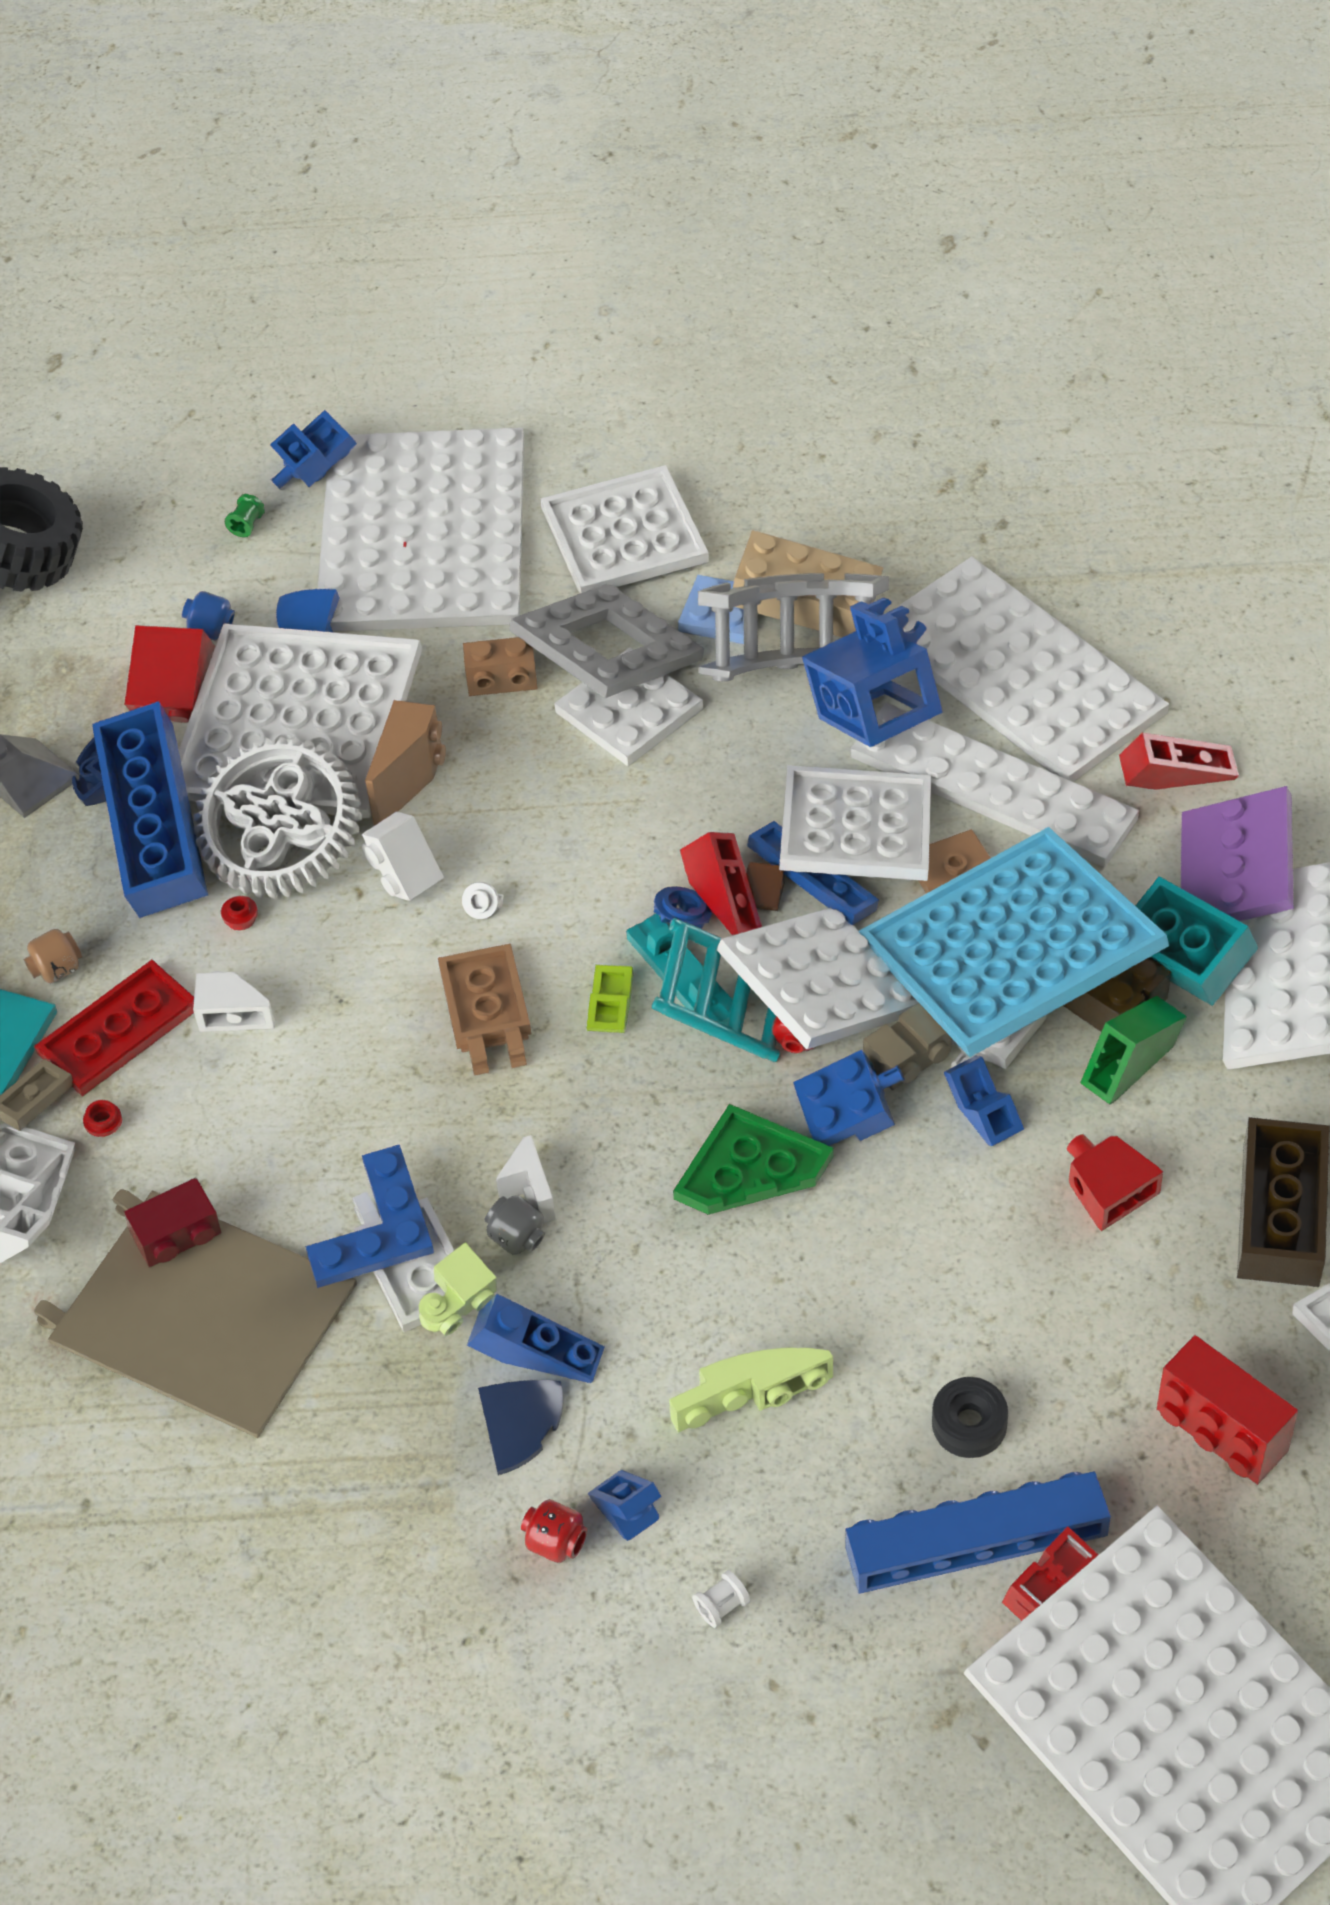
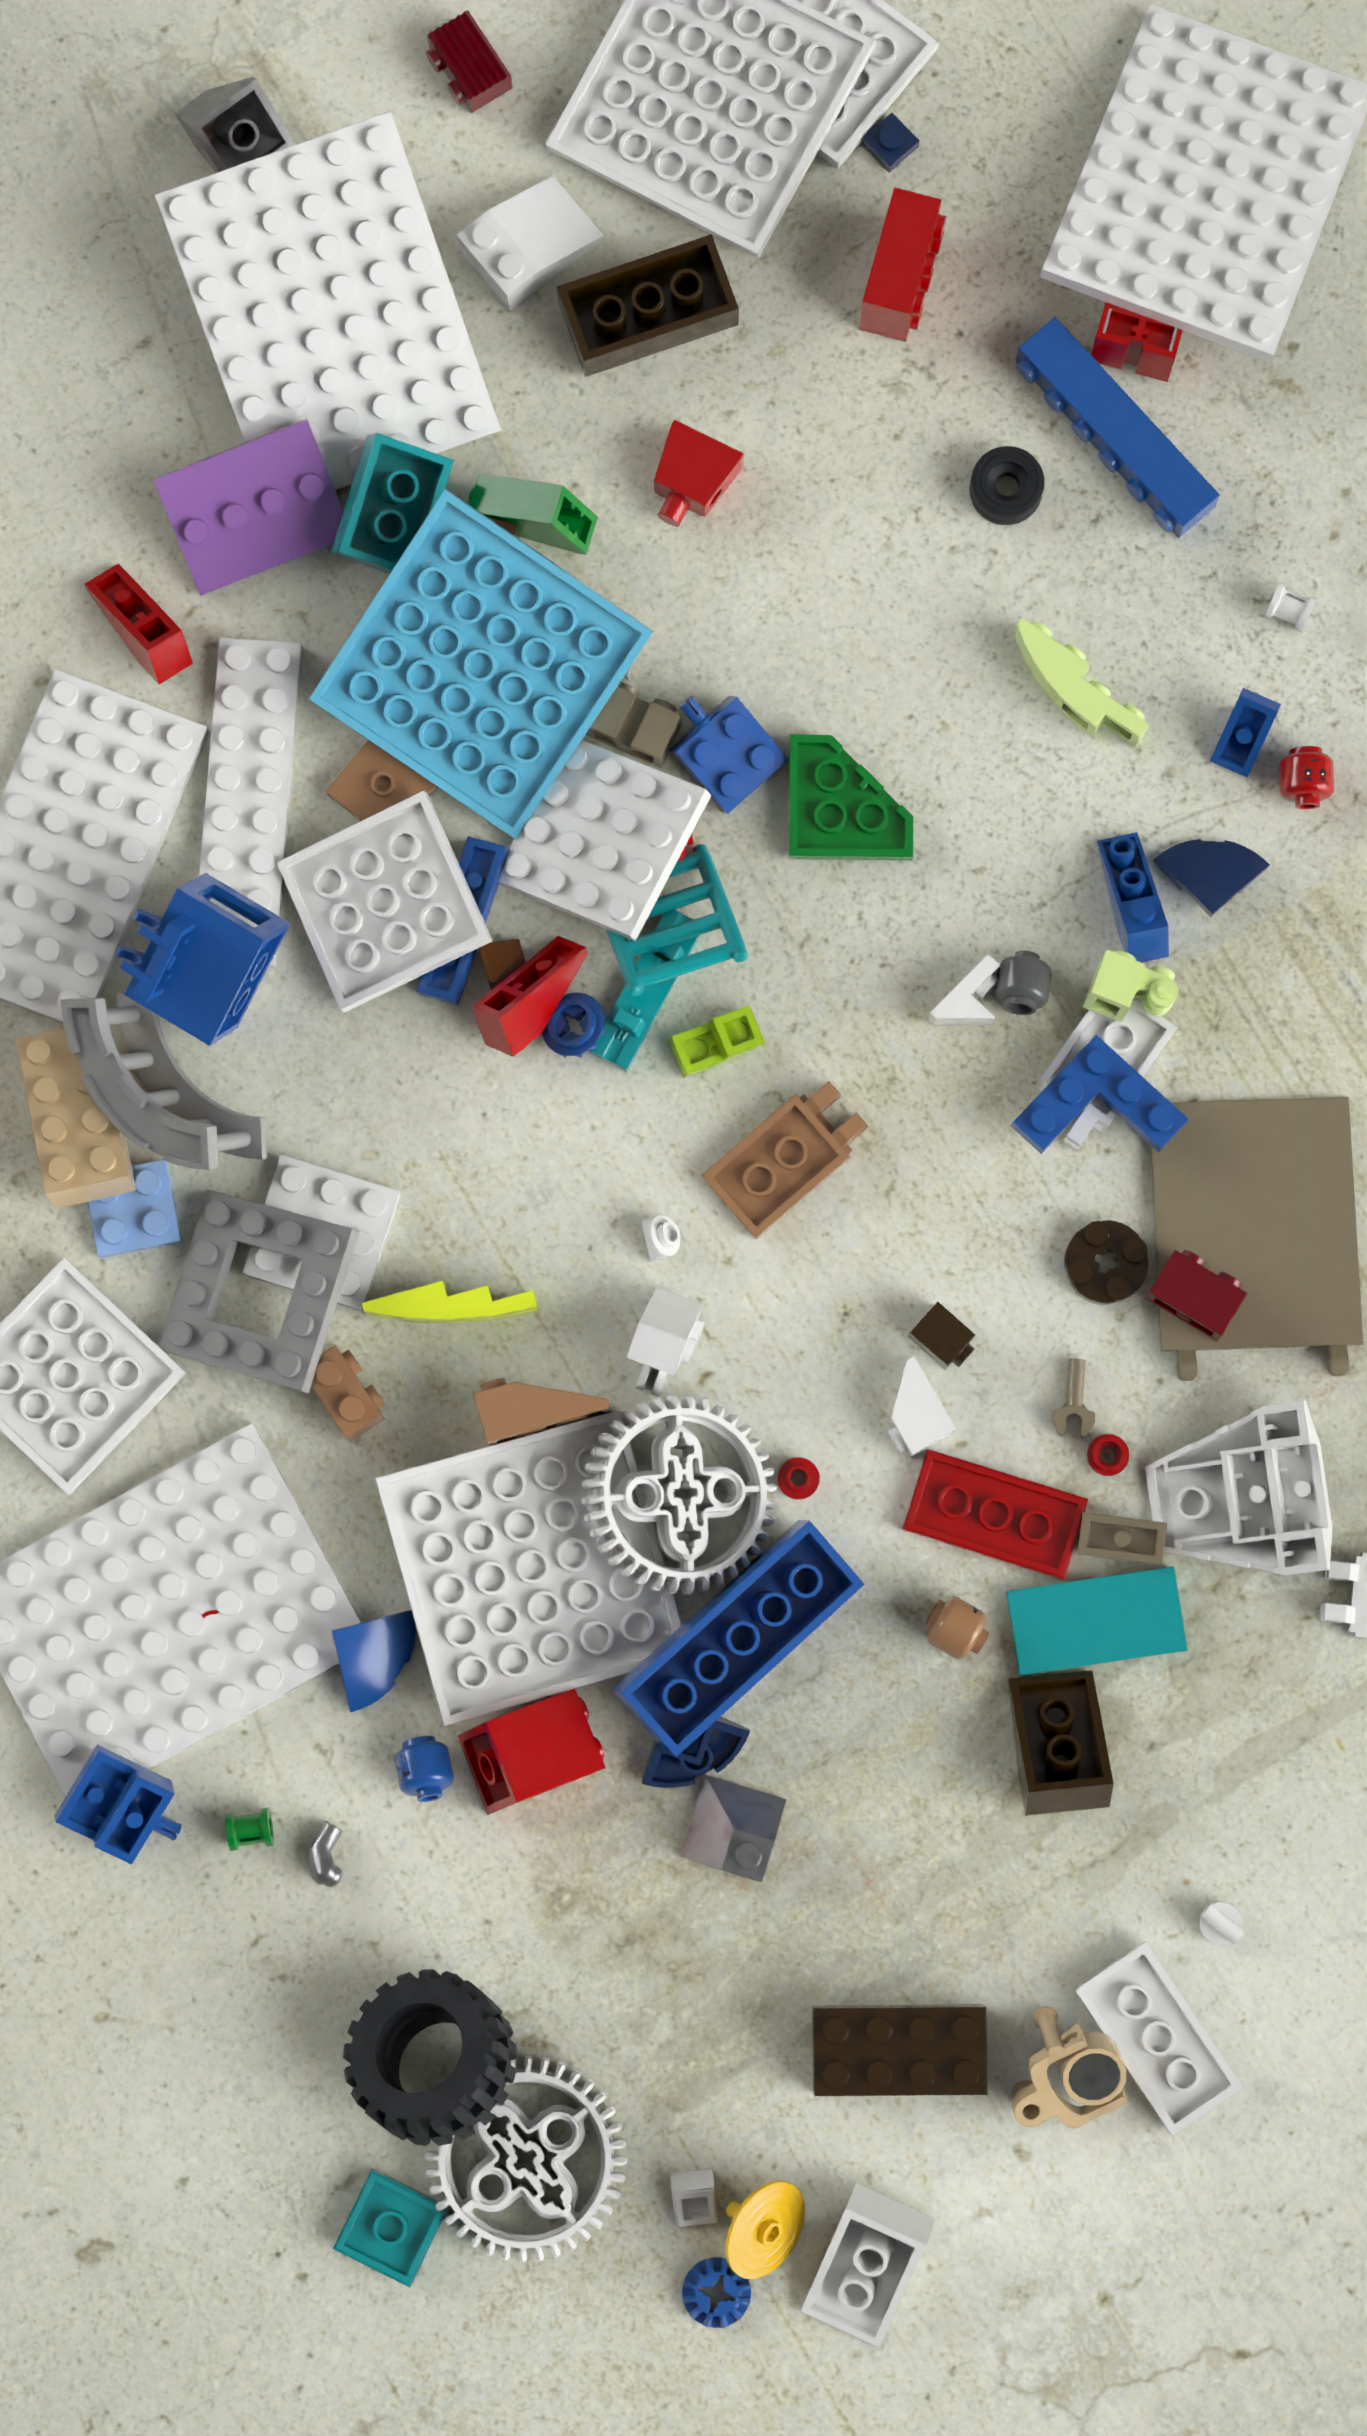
camera: 120 degrees left, 30 degrees up
(158, 1116) = (1074, 1401): none -> dark tan bar
(199, 547) = (320, 1857): none -> flat silver arm
(248, 1168) = (1084, 1272): none -> dark brown plate
(272, 1043) = (943, 1337): none -> dark brown brick
(522, 746) = (433, 1305): none -> neon yellow slope
(985, 1108) = (668, 617): blue slope -> none

